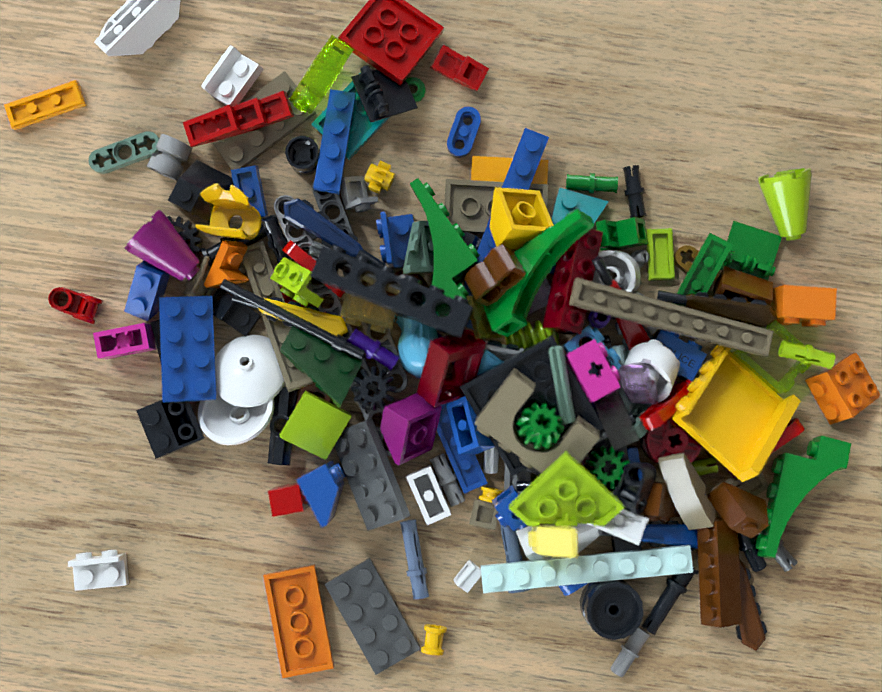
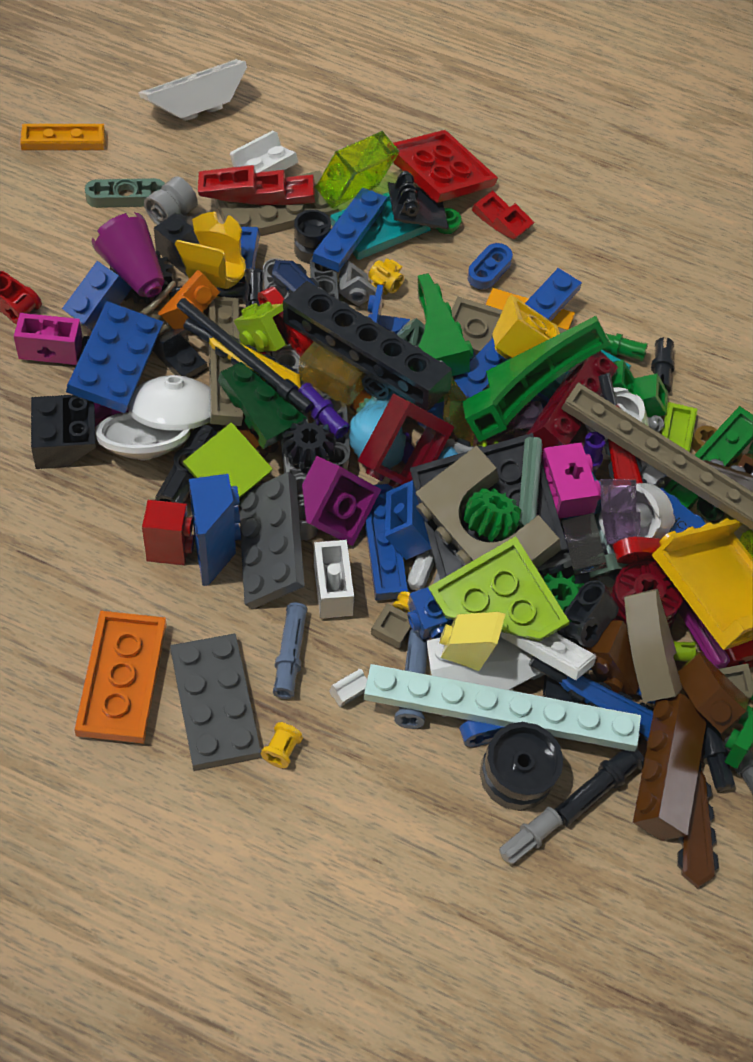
camera: 10 degrees right, 30 degrees down
(447, 480) = (361, 579): light grey pin -> none
(494, 275) = (488, 365): reddish brown brick -> none

